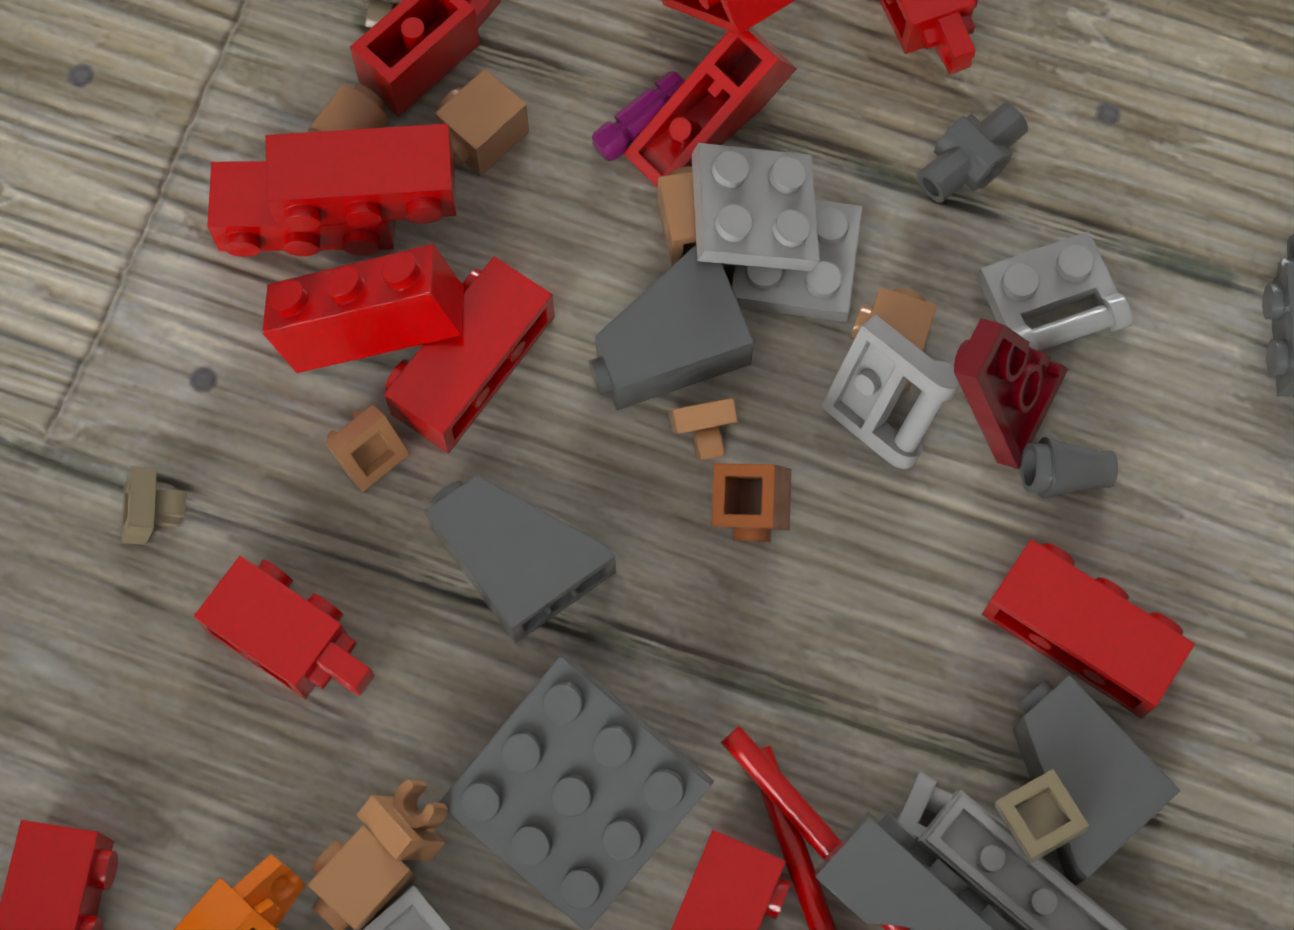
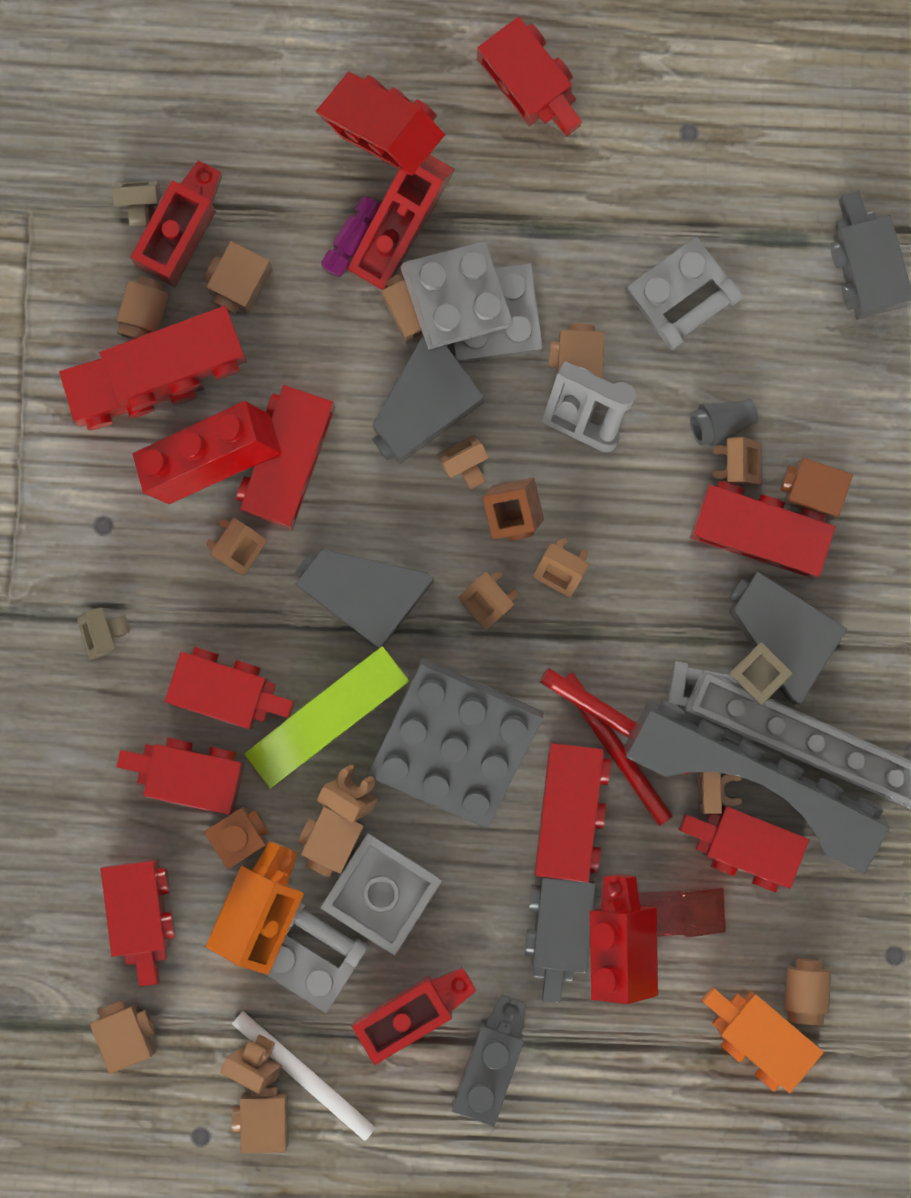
camera: 15 degrees left, 15 degrees up
(192, 732) = (186, 776): none -> red hinge
(229, 835) = (238, 836): none -> dark orange brick
(409, 706) = (326, 717): none -> lime slope
(681, 612) = (487, 600): none -> medium nougat tile
(794, 599) = (561, 568): none -> medium nougat tile
(972, 152) = (599, 198): dark grey axle -> none
(1006, 387) = (668, 381): dark red wing -> none
(1082, 526) = (743, 461): none -> medium nougat tile
(1179, 586) = (816, 487): none -> dark orange brick

